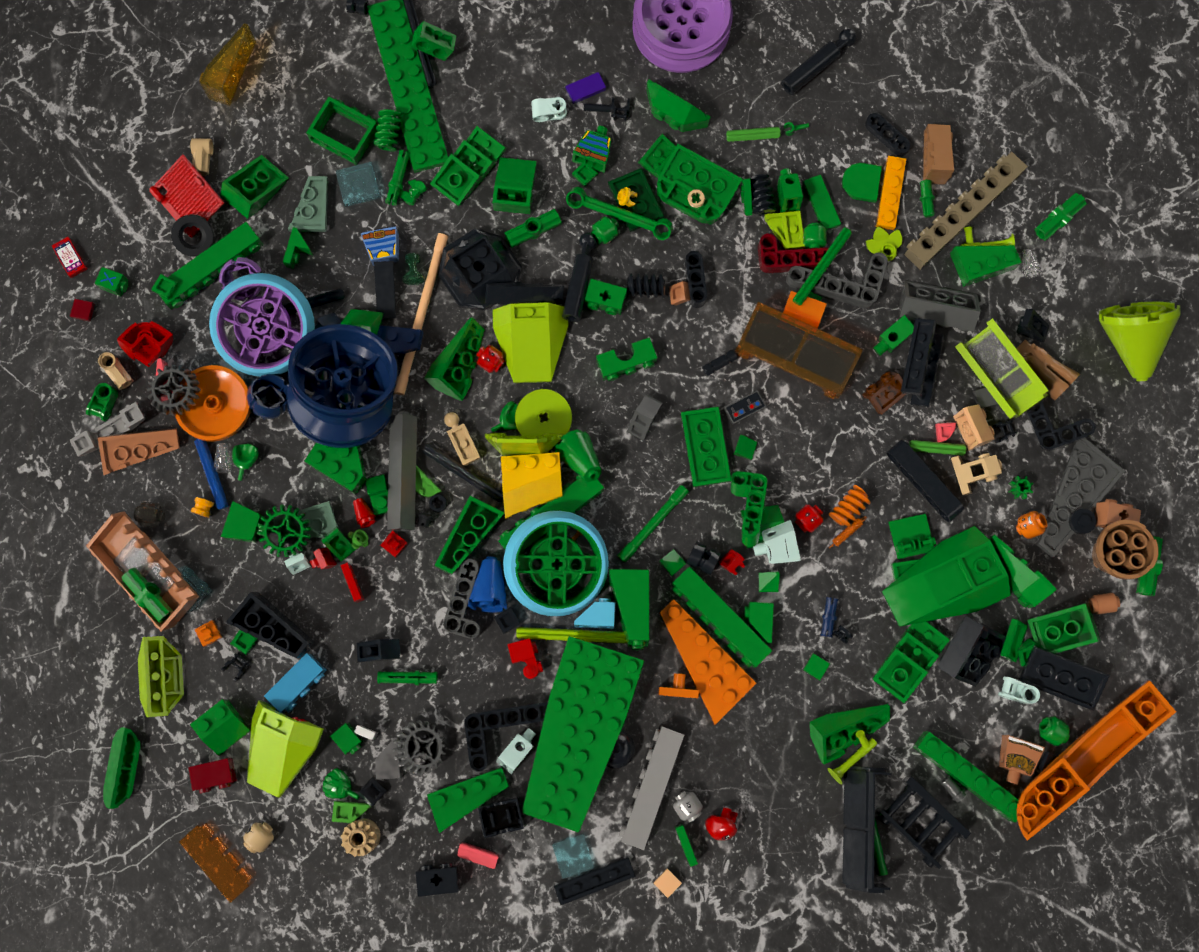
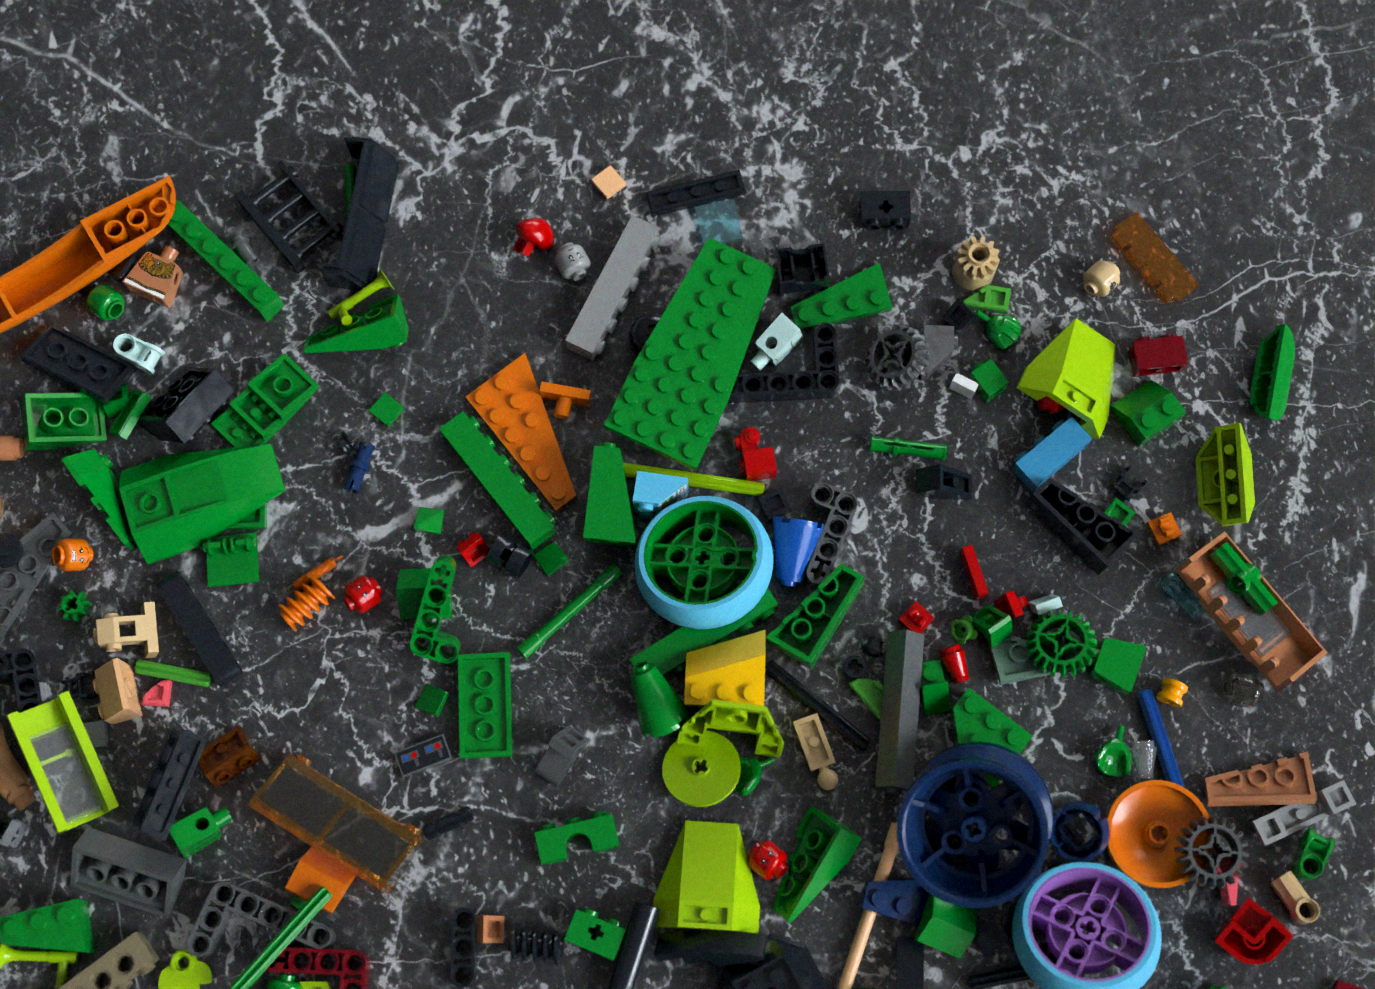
camera: 170 degrees left, 5 degrees down
(478, 855) = (833, 235): coral slope -> none
(686, 845) = (580, 219): green tile -> none
(760, 619) = (447, 474): green slope -> none
(779, 544) = (407, 561): light aqua torso -> none

